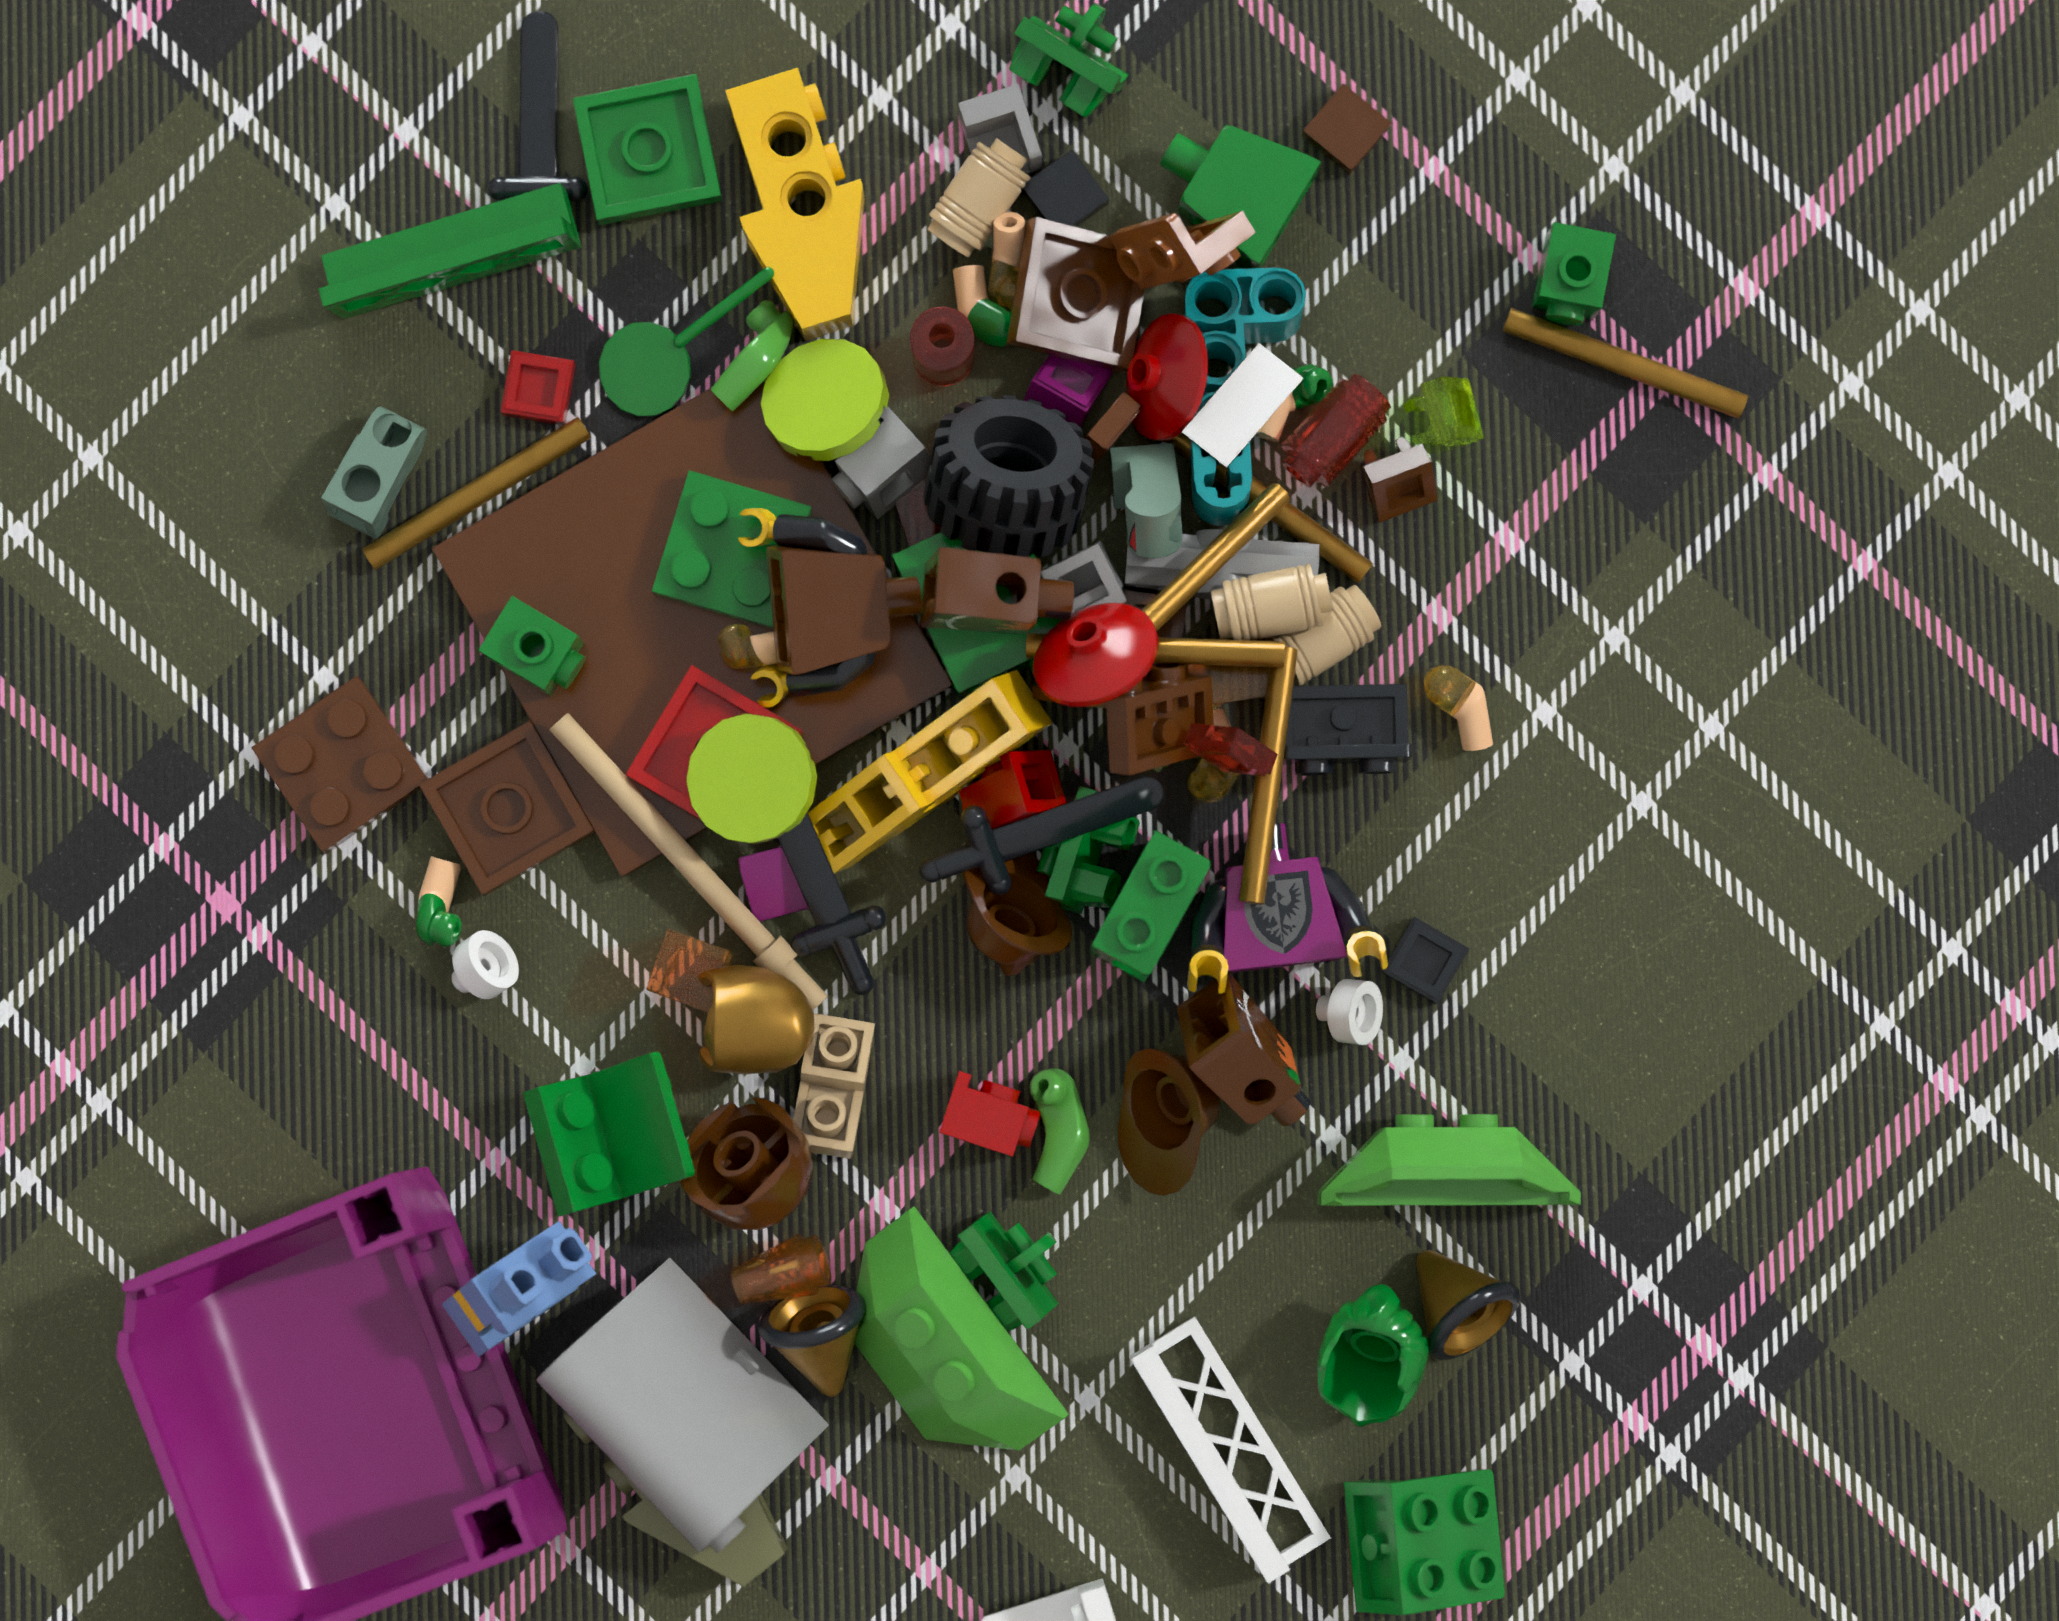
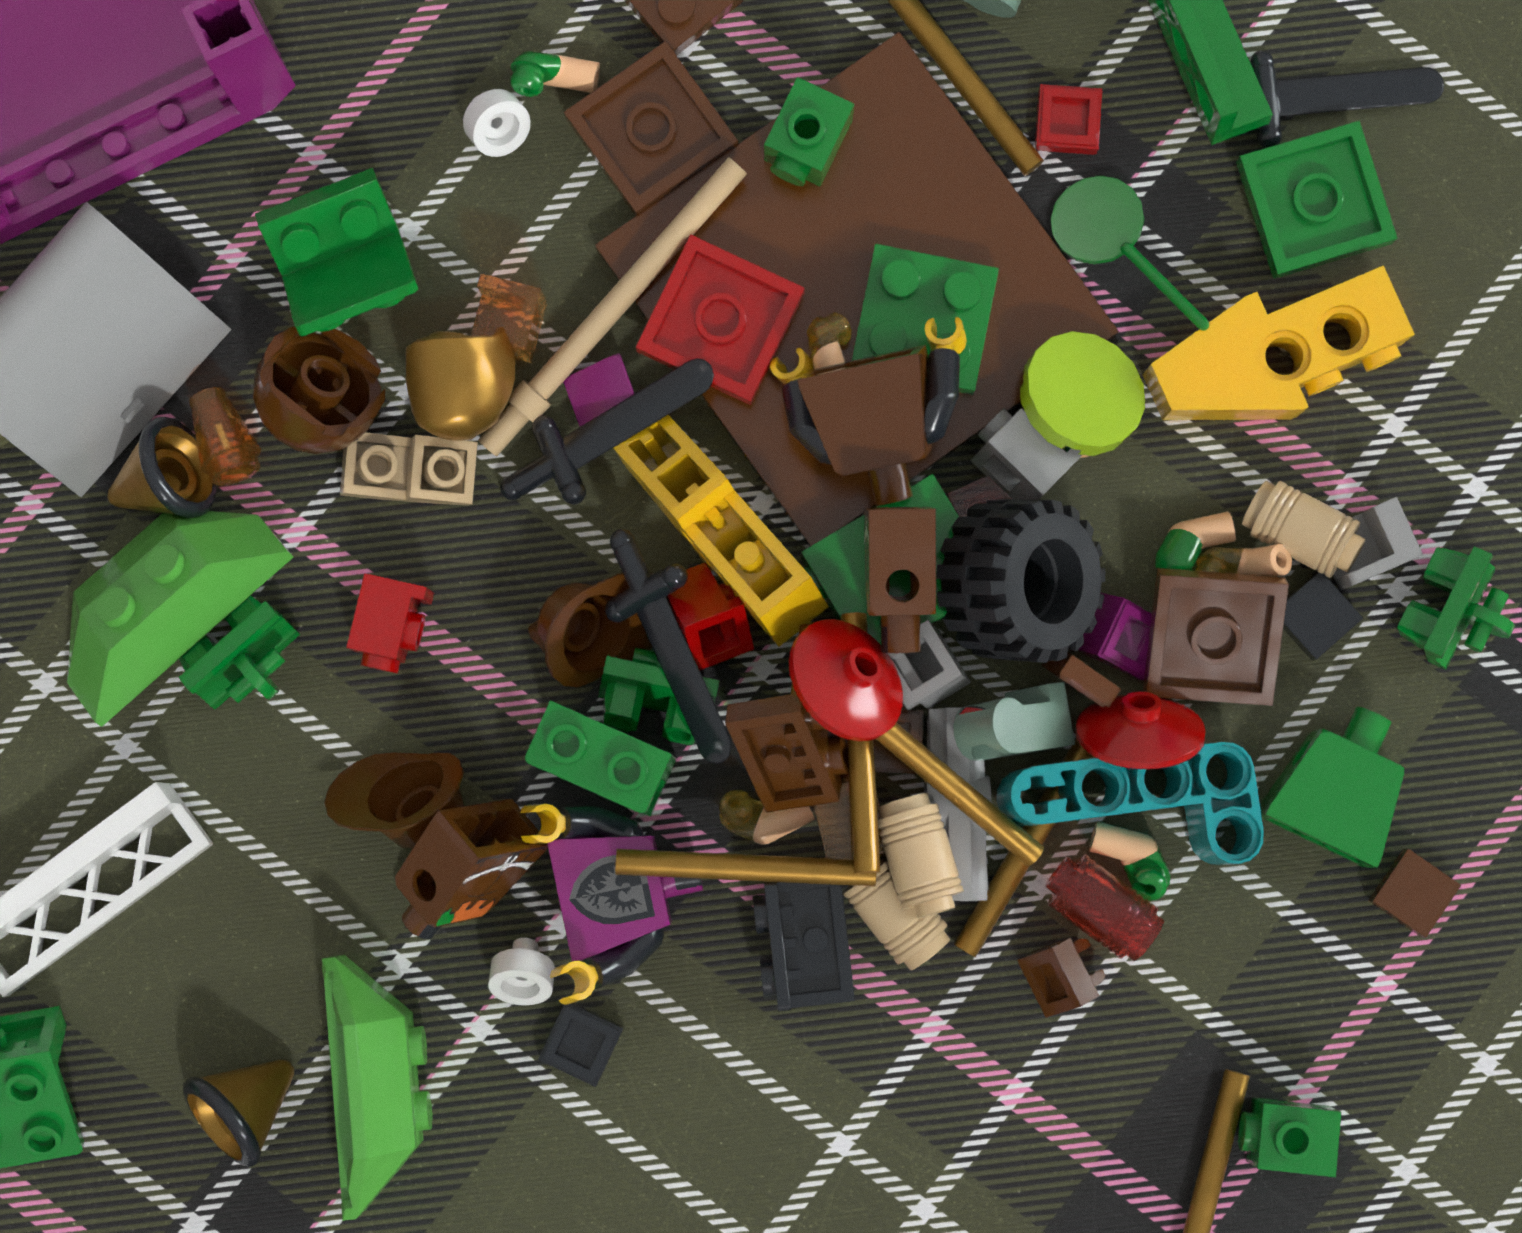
camera: 90 degrees right, 0 degrees up
(520, 1287) = (180, 181): medium blue hips -> none
(751, 778) = (694, 354): lime tile -> none
(758, 357) = (1119, 325): bright green arm -> none
(948, 364) = (1131, 514): clear red head -> none
(1064, 1127) = (386, 698): bright green arm -> none
(1169, 251) = (1265, 715): dark orange bracket -> none
(1230, 749) = (765, 826): clear red tile -> none
(1242, 405) = (1118, 808): white sticker -> none
(1371, 1358) = (175, 1022): green hair -> none
(1450, 412) = (1134, 1022): clear neon green tile -> none
(1462, 700) = (844, 1059): arm -> none

